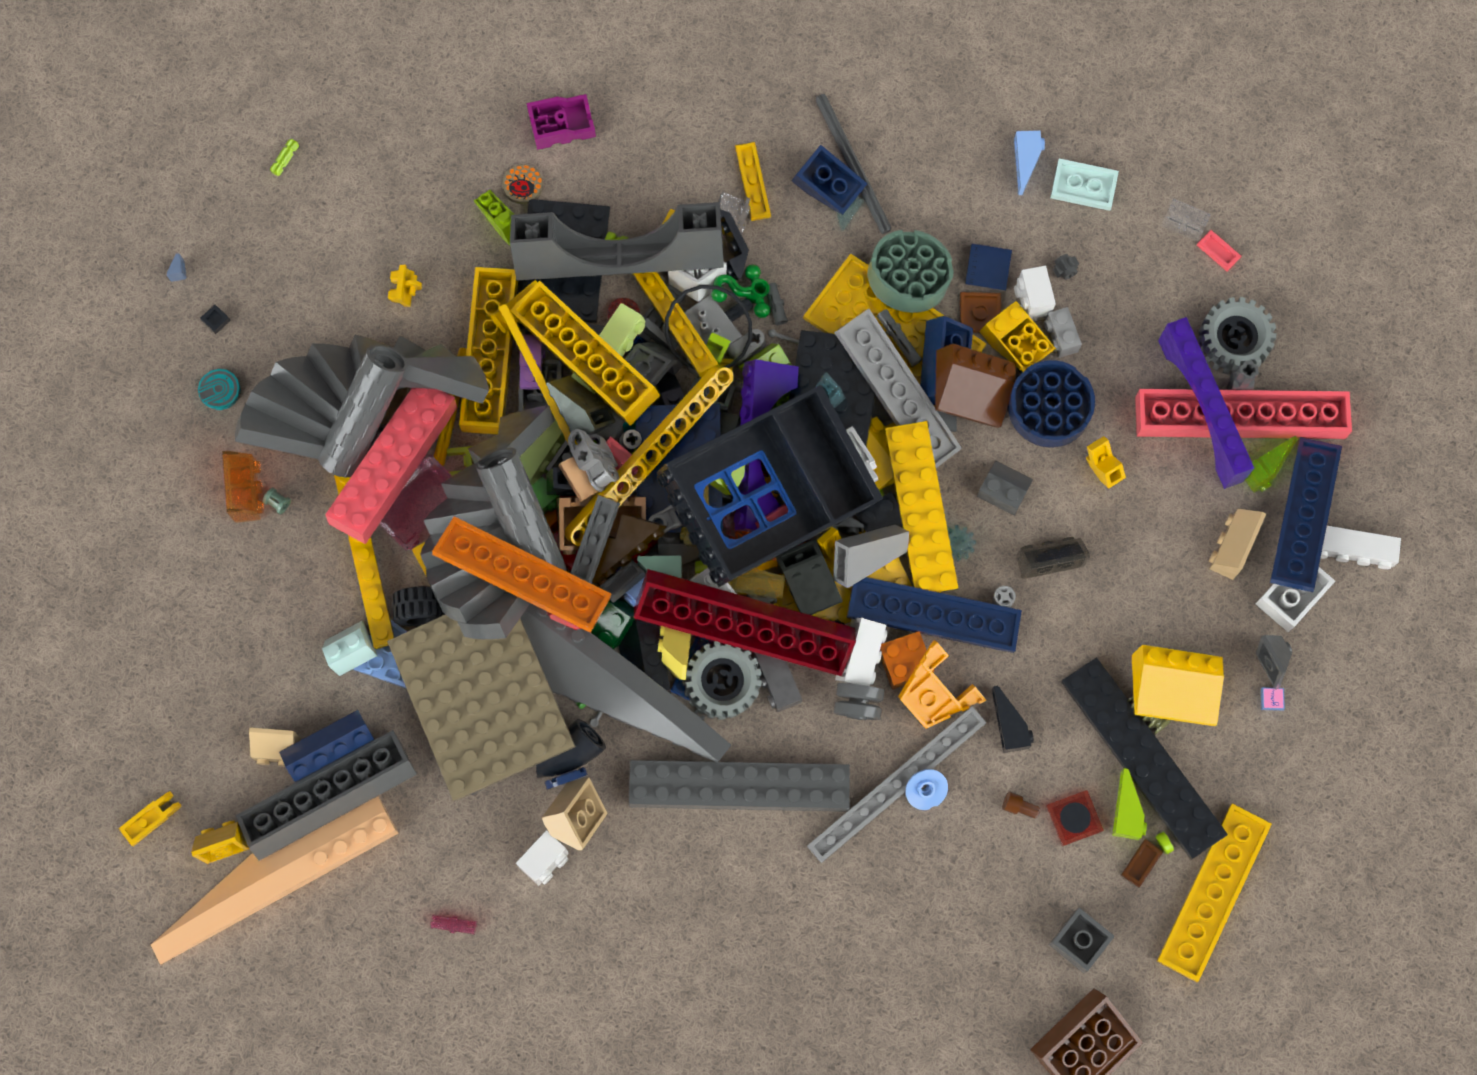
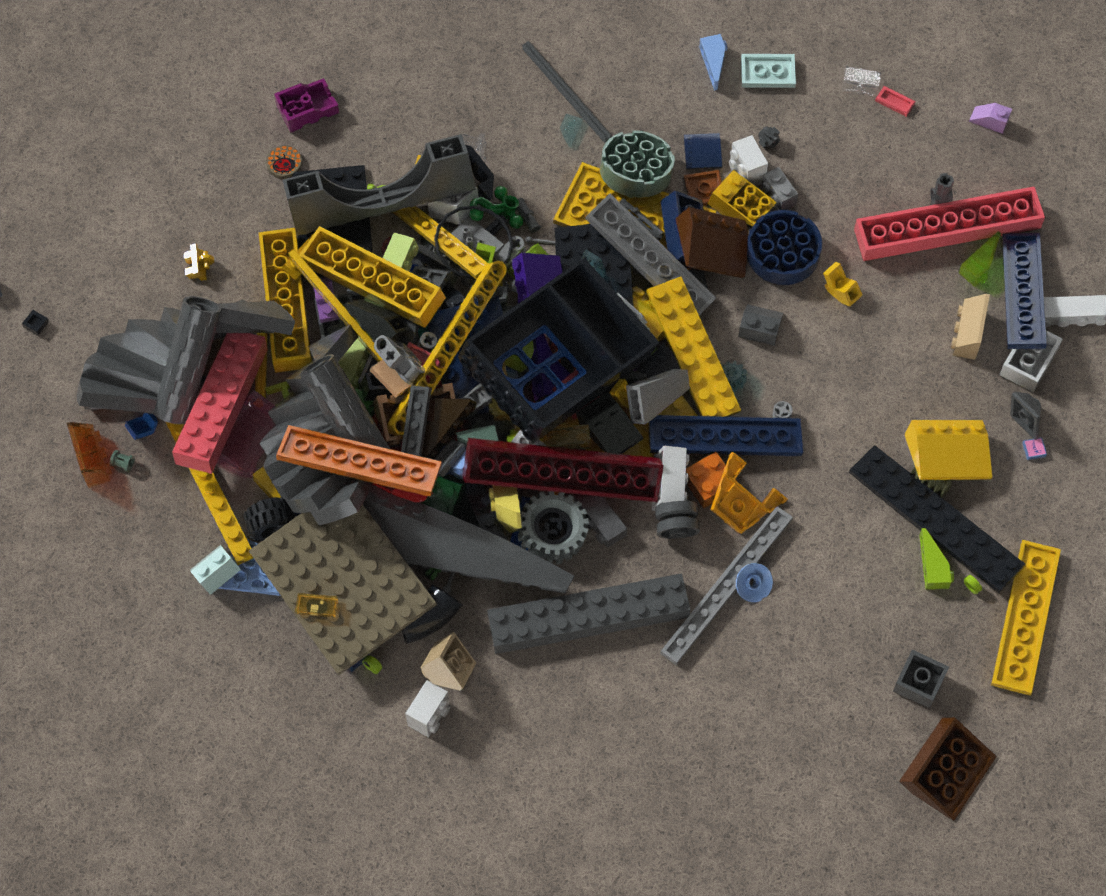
camera: 10 degrees left, 10 degrees down
(148, 819) = (62, 752): yellow hinge -> none
(219, 389) = (50, 379): tile -> none
(219, 843) = (133, 757): yellow slope -> none
(262, 882) = (195, 763): light nougat wedge -> none
(267, 744) = (164, 664): tan slope -> none
(284, 157) = (69, 180): lime axle -> none
(303, 466) = (142, 426): none -> blue bracket
(325, 795) = (220, 695): dark grey brick -> none
(326, 746) = (213, 654): dark blue slope -> none
(446, 721) = (316, 605): none -> clear yellow tile
(453, 924) = (359, 785): clear pink pin -> none
(496, 793) = (372, 664): none -> lime tile
(497, 213) = (269, 190): lime slope -> none
(564, 778) = (433, 636): dark blue tile -> none
(753, 181) = (483, 121): yellow tile -> none
(829, 180) = (549, 107): dark blue slope -> none
(1011, 725) = (815, 515): black slope -> none
(1014, 803) = (834, 579): reddish brown piece -> none
(1052, 557) = (816, 371): clear smoke slope -> none
(1074, 818) = (889, 581): clear red tile -> none
(1141, 863) = (957, 606): reddish brown tile -> none
(1183, 350) = (949, 258): dark purple arch -> none
(1238, 318) = (929, 151): light grey wheel -> none
(1322, 293) = (991, 116): none -> lavender slope

